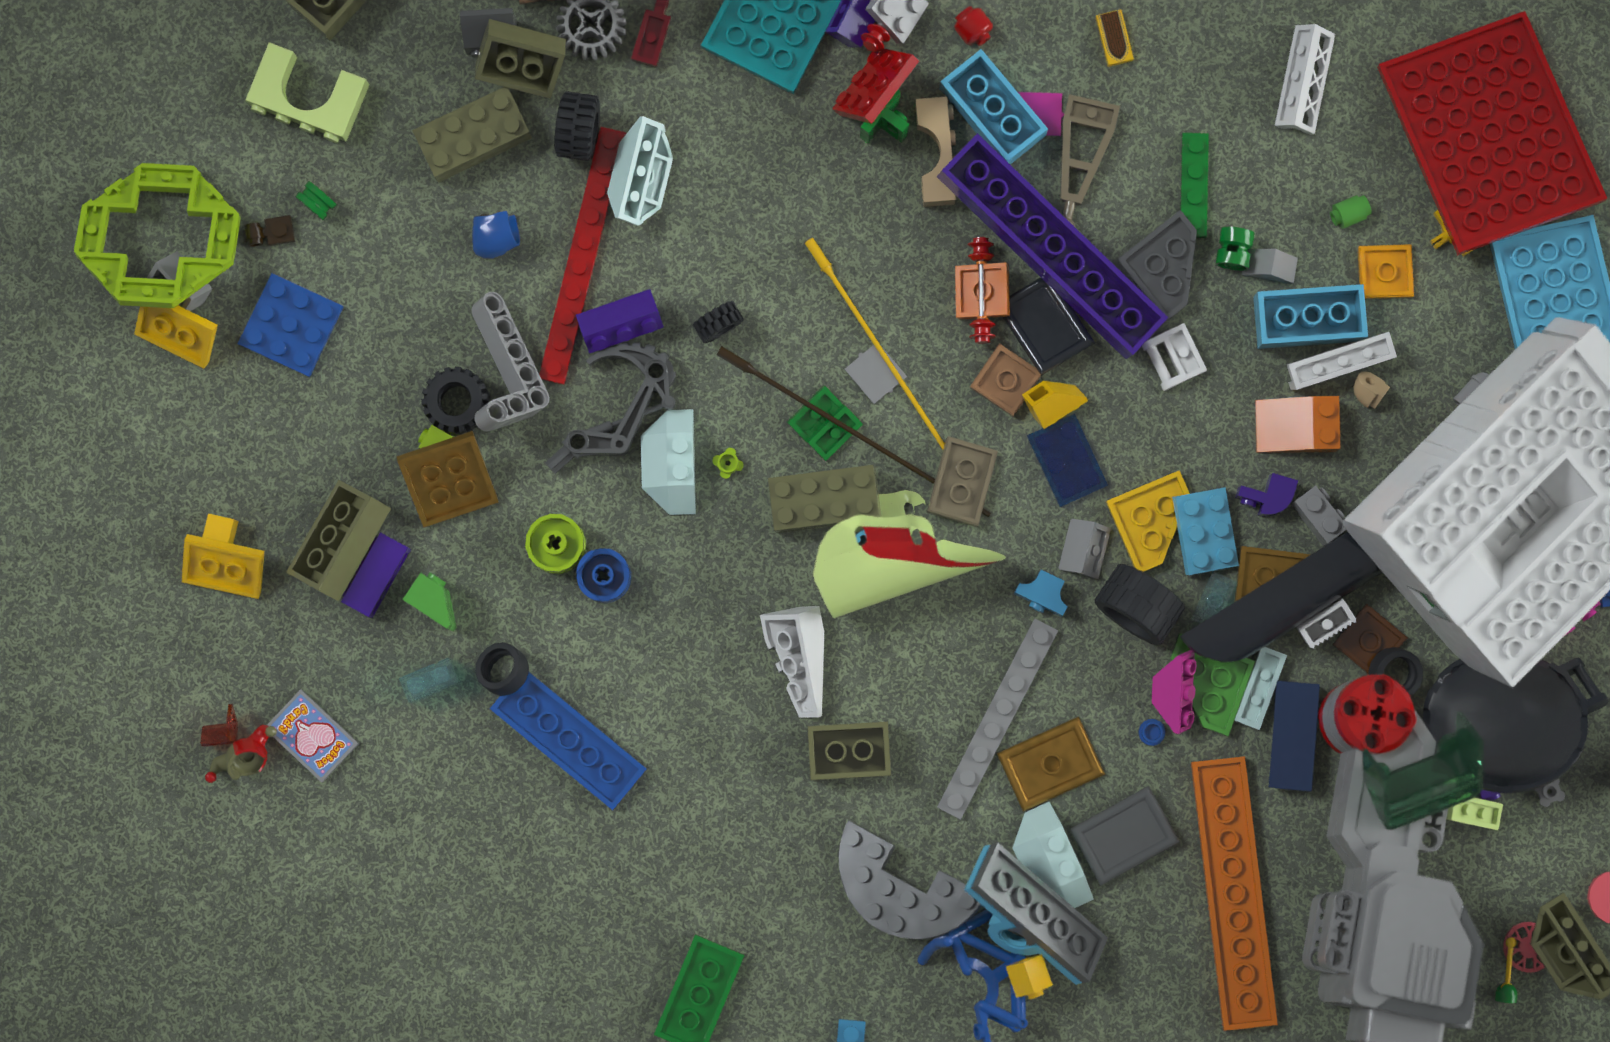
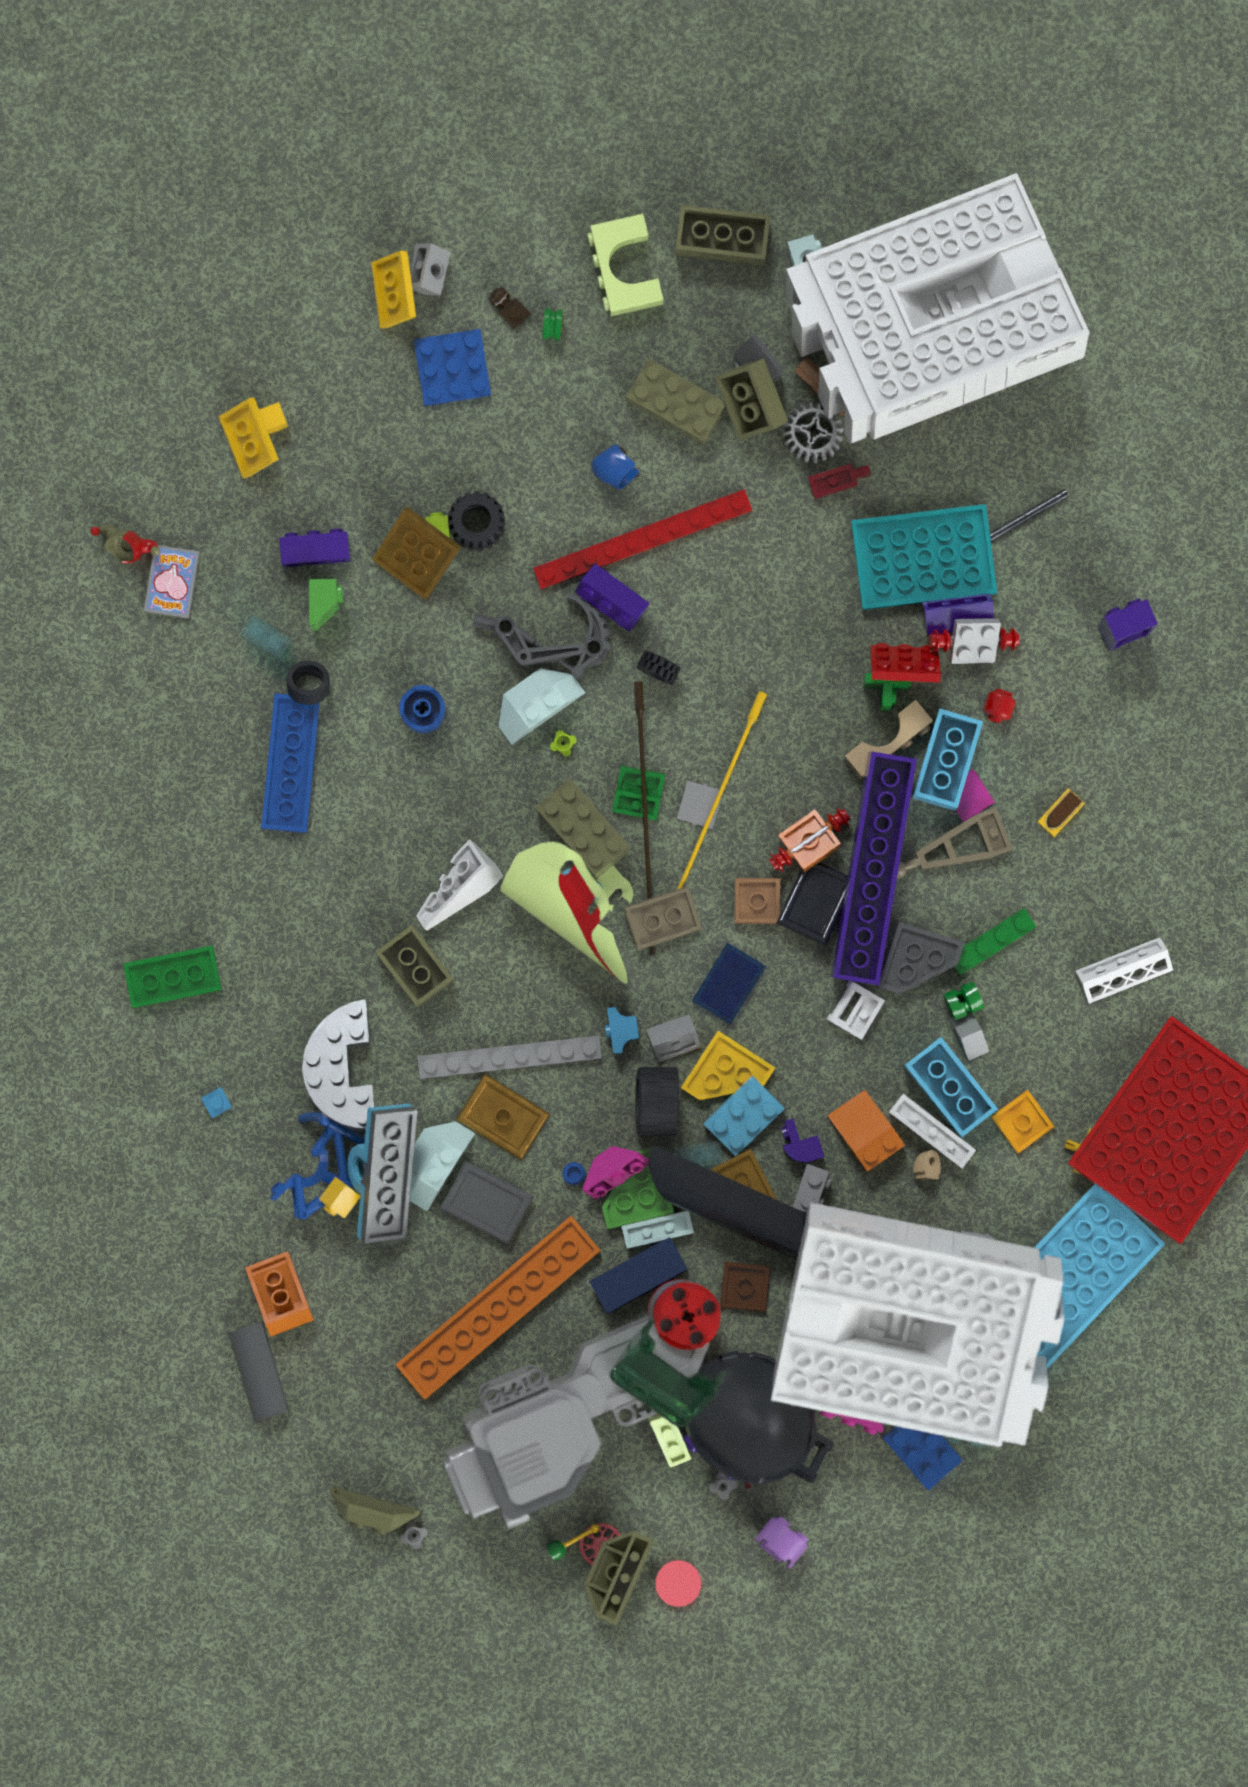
camera: 50 degrees right, 0 degrees up
(191, 272) = (440, 273): lime plate -> none
(221, 733) = (130, 516): clear red bracket -> none
(338, 540) = (321, 506): olive brick -> none
(514, 364) = (526, 542): light grey beam -> none
(544, 533) = (420, 647): lime wheel -> none
(577, 126) = (731, 472): black tyre -> none
(640, 172) = (728, 540): light aqua wedge -> none
(1052, 401) = (764, 944): yellow slope -> none
(1326, 623) = (734, 1245): white brick -> none
(1350, 211) = (1048, 1066): bright green brick -> none
(1414, 666) = (735, 1301): black tyre -> none

